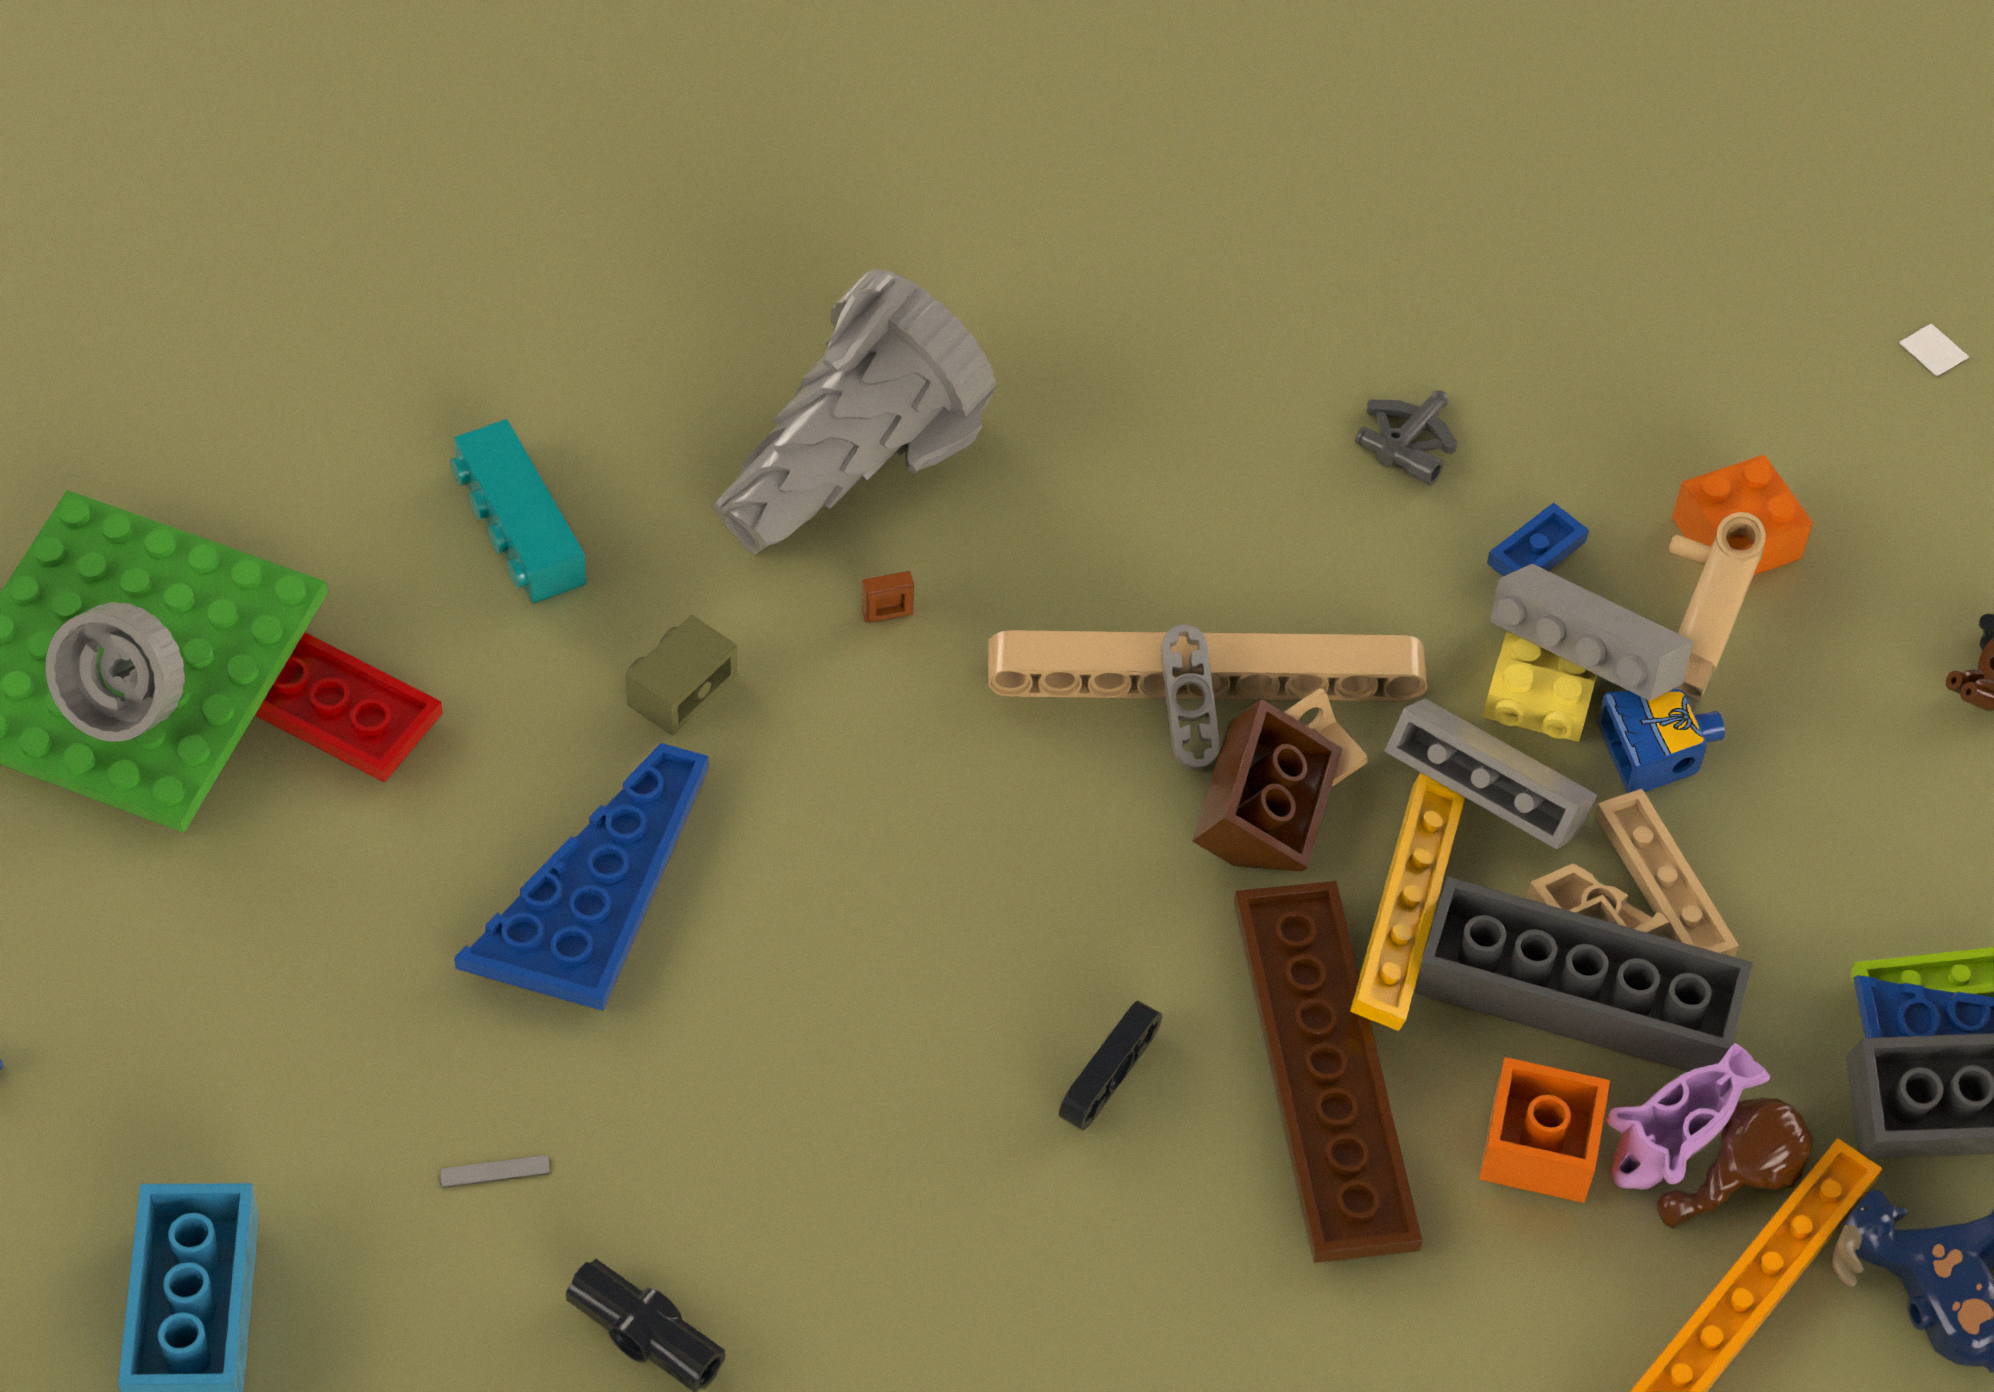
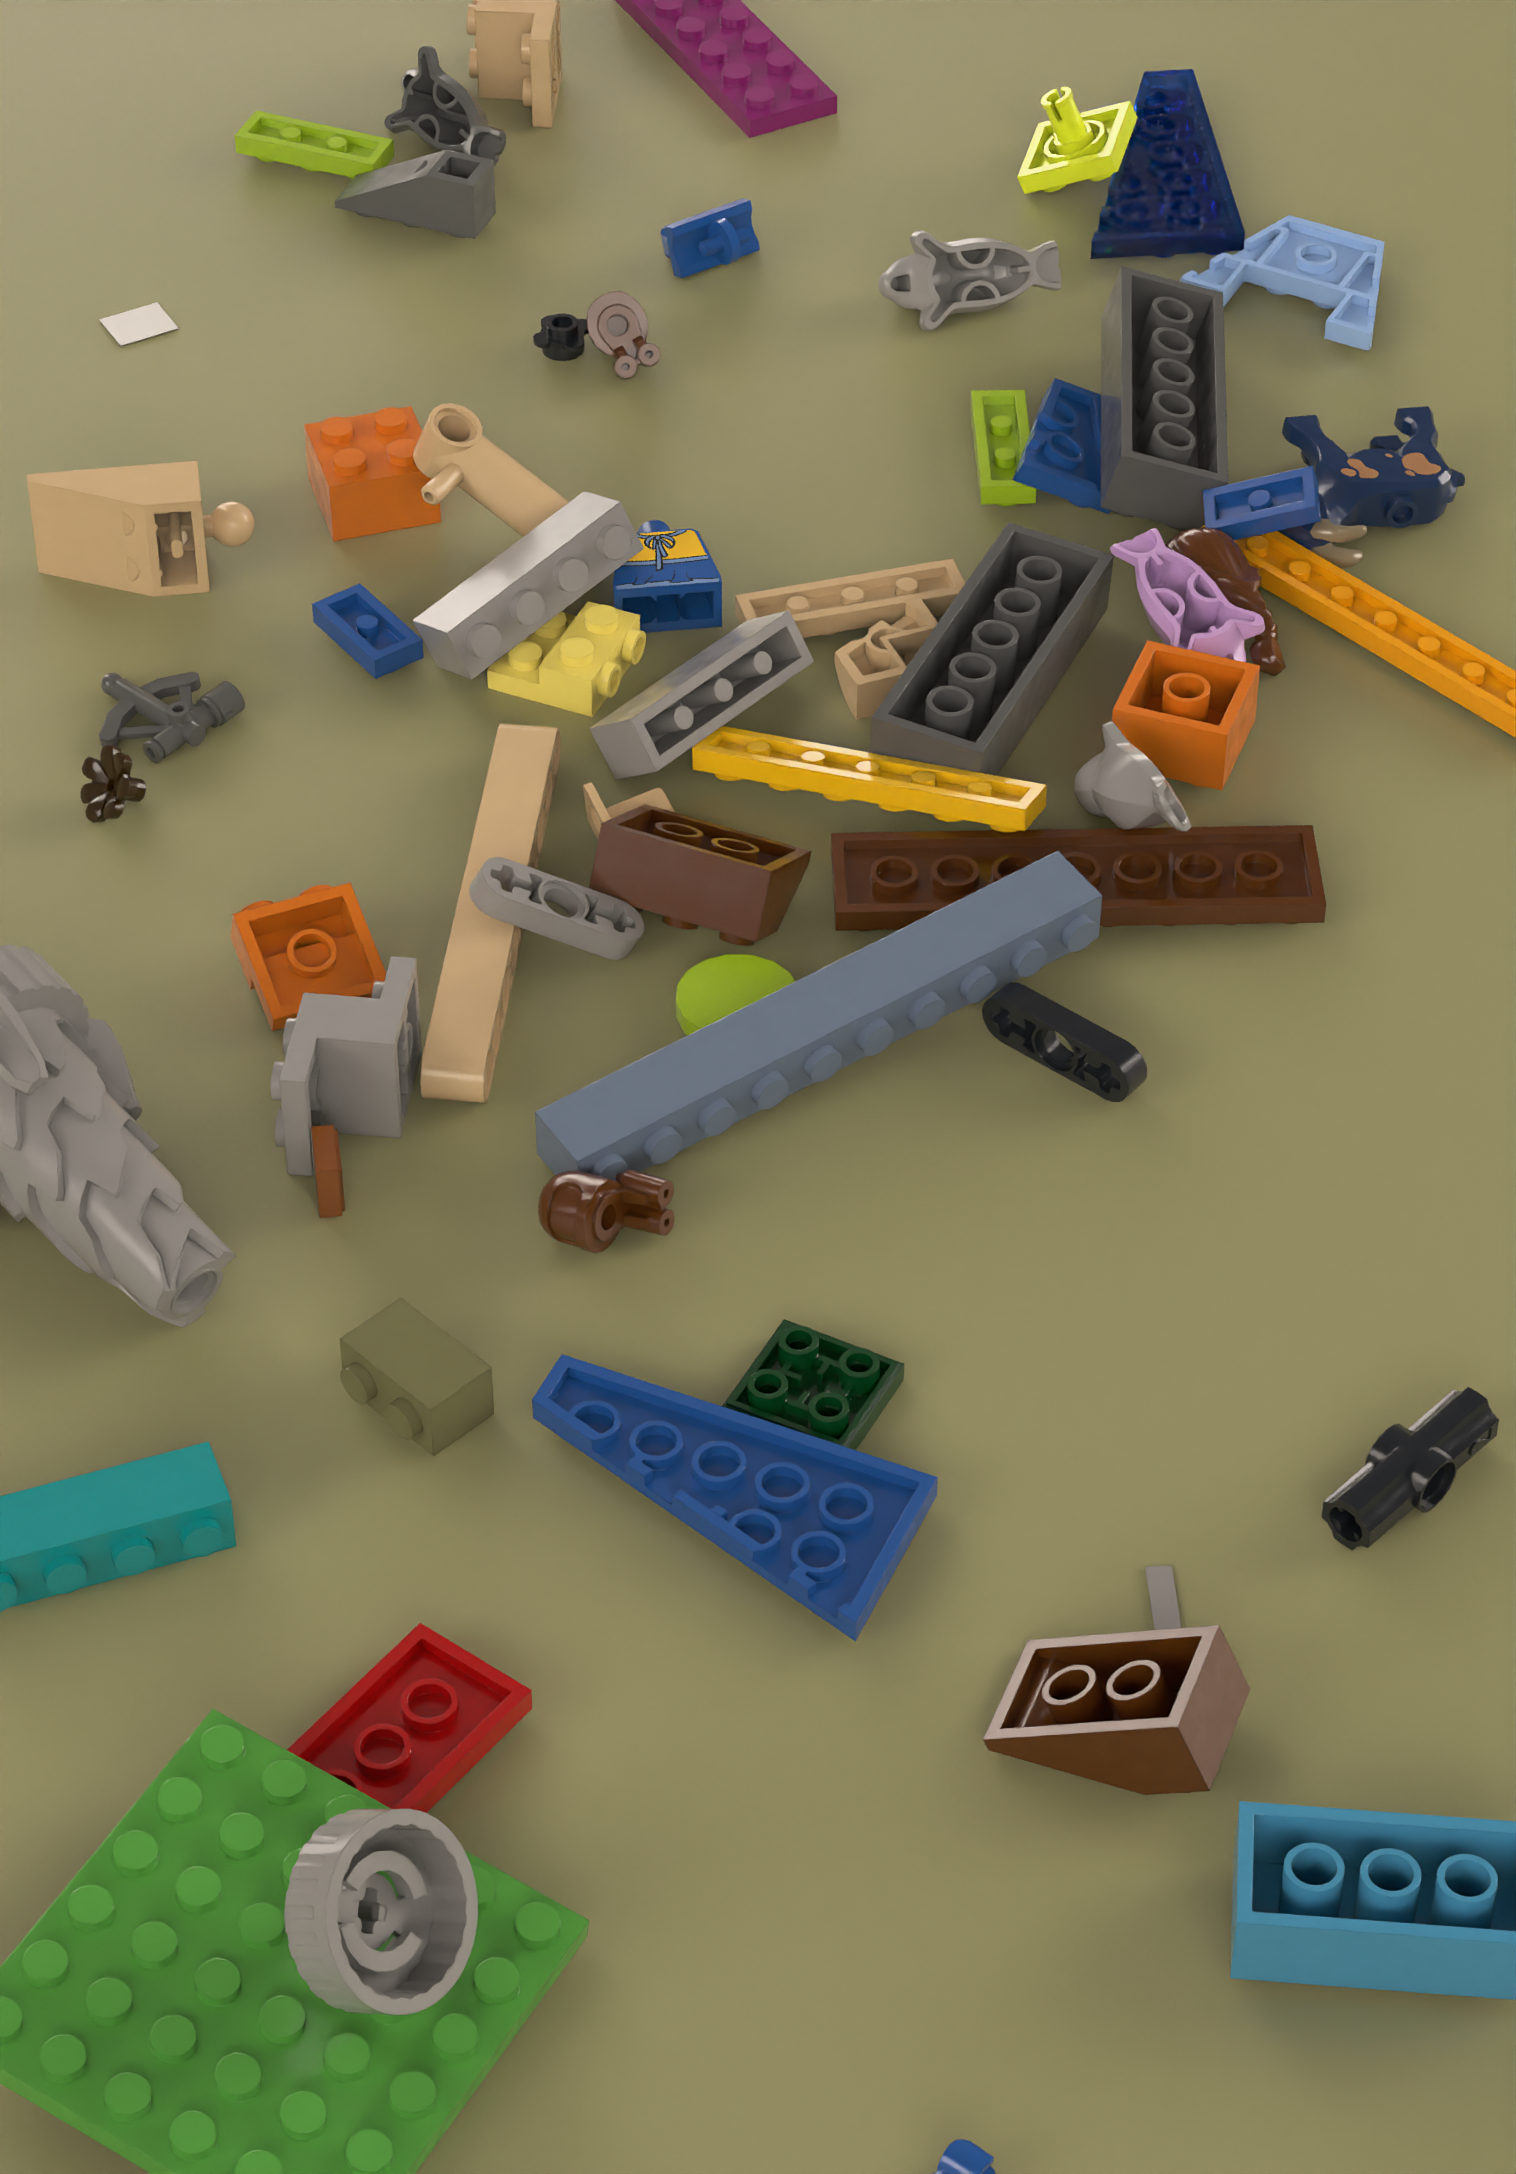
camera: 80 degrees left, 10 degrees down
(381, 1133) = (1124, 1707): none -> reddish brown slope
(703, 926) = (817, 1385): none -> dark green tile
(865, 763) = (593, 1209): none -> reddish brown piece
(971, 569) = (348, 1064): none -> light grey bracket
(1092, 893) = (821, 1023): none -> sand blue brick
(1121, 554) = (306, 947): none -> orange plate
(1132, 841) = (725, 986): none -> lime tile
(1303, 414) = (109, 784): none -> dark brown plant
(1412, 1089) = (1127, 787): none -> light grey animal
(1607, 375) = (117, 522): none -> tan slope
(1852, 1172) = (1264, 504): none -> blue plate

